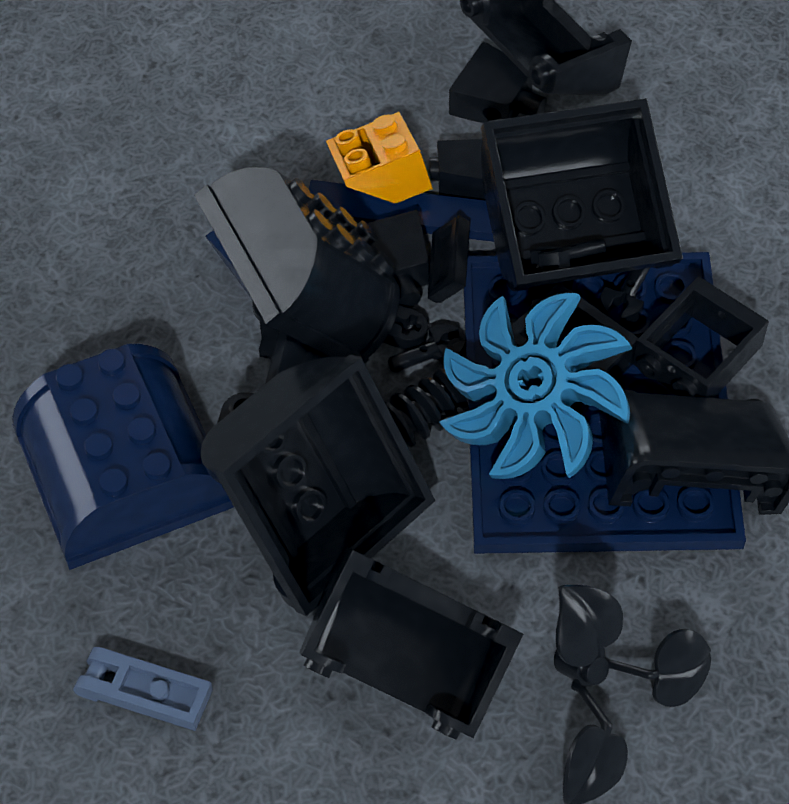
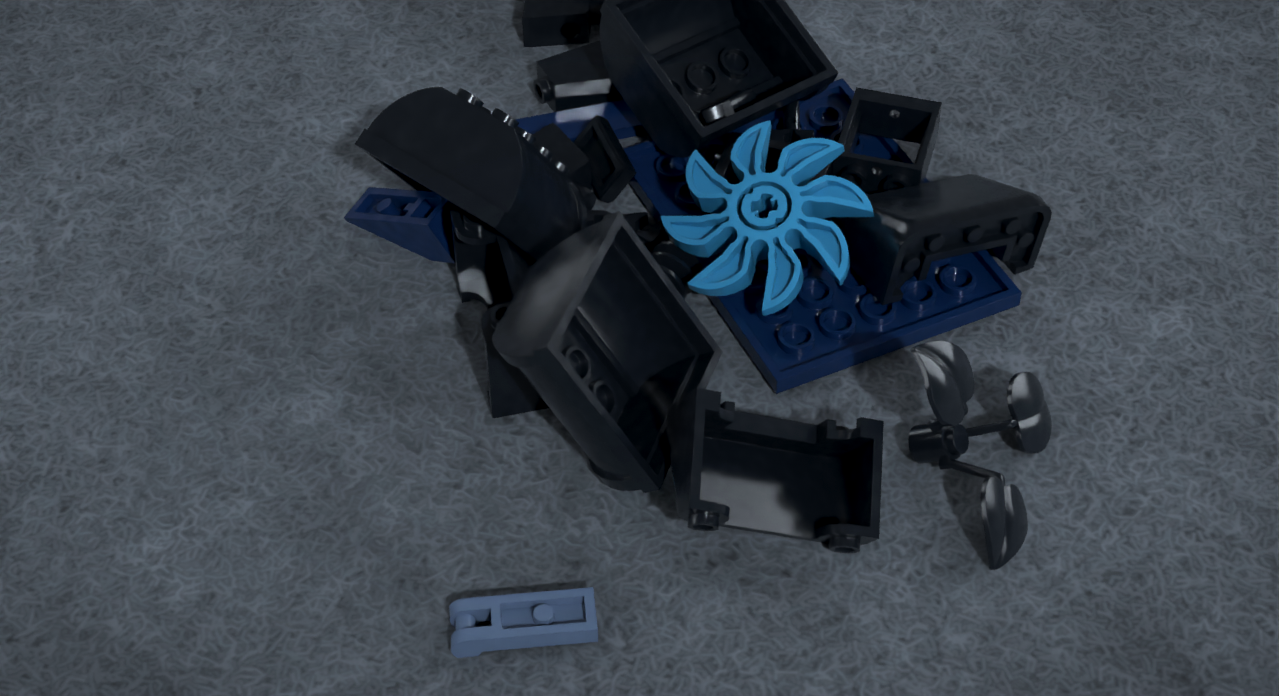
camera: 25 degrees left, 10 degrees down
(115, 452) = (371, 425): dark blue container -> none
(381, 159) = (502, 83): light orange slope -> none

